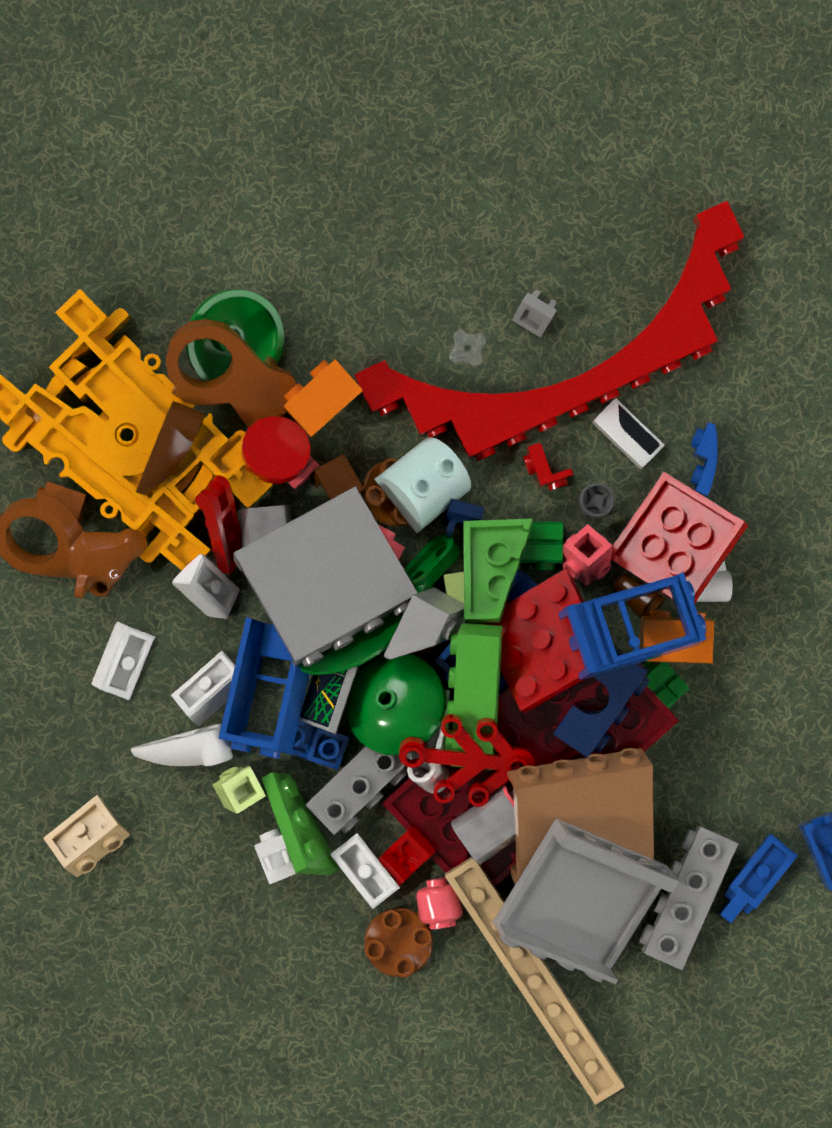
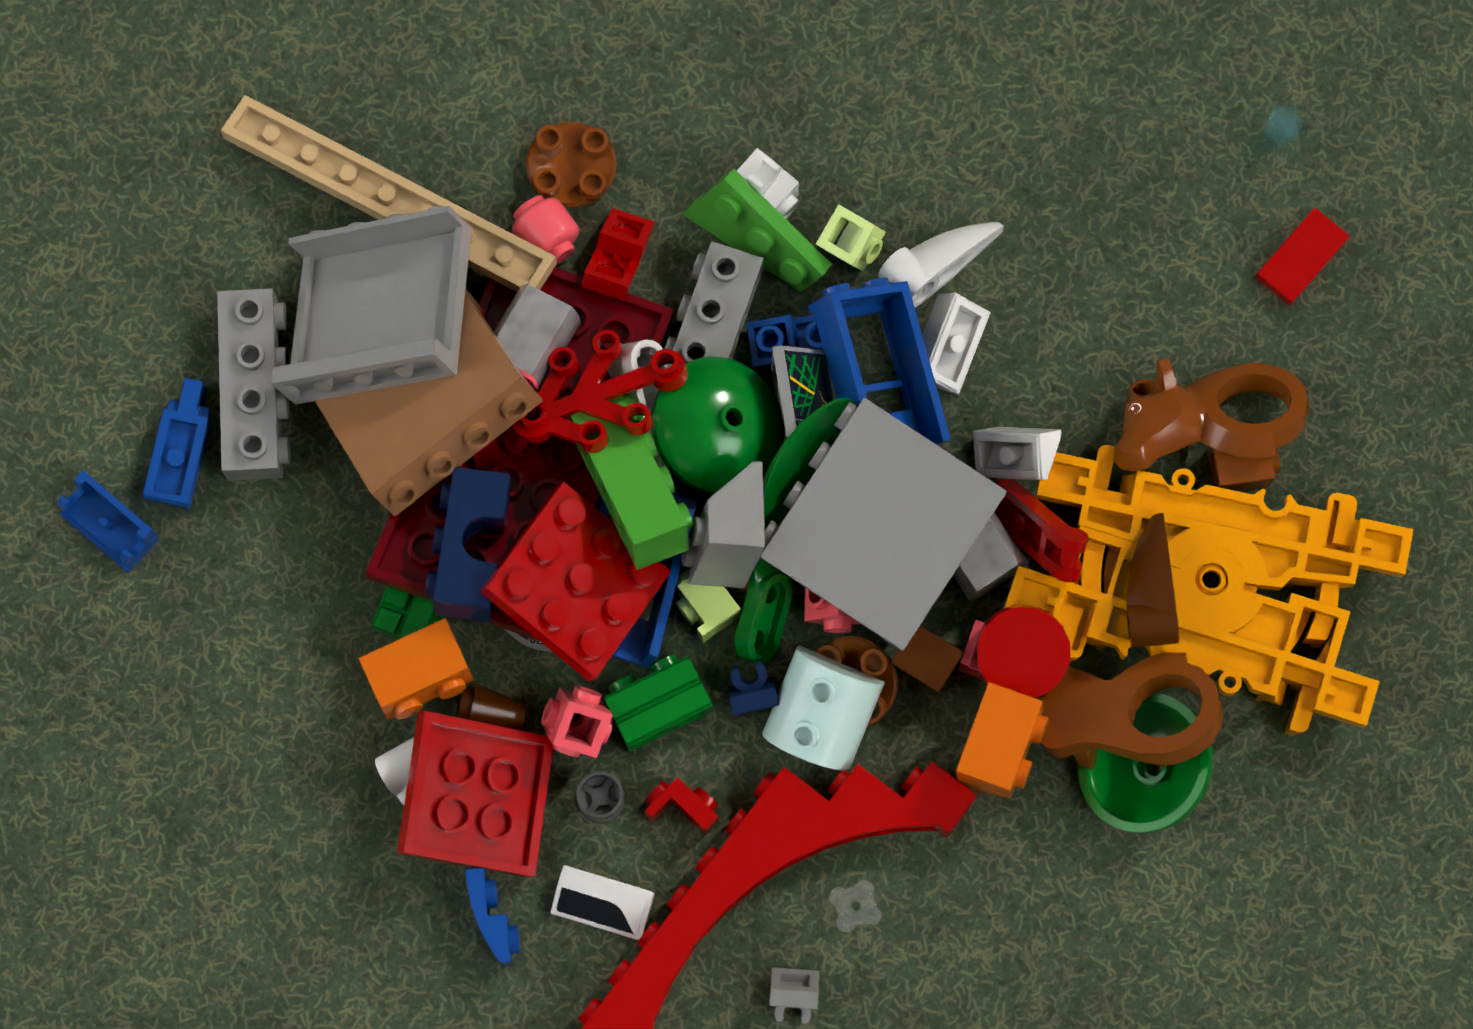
camera: 155 degrees right, 10 degrees down
(86, 837) = (1000, 100): tan bracket -> none
(122, 660) = (1068, 323): white slope -> none
(364, 870) = (653, 221): white slope -> none
(490, 565) = (688, 642): bright green wing -> none
(594, 639) = (521, 600): blue door -> none

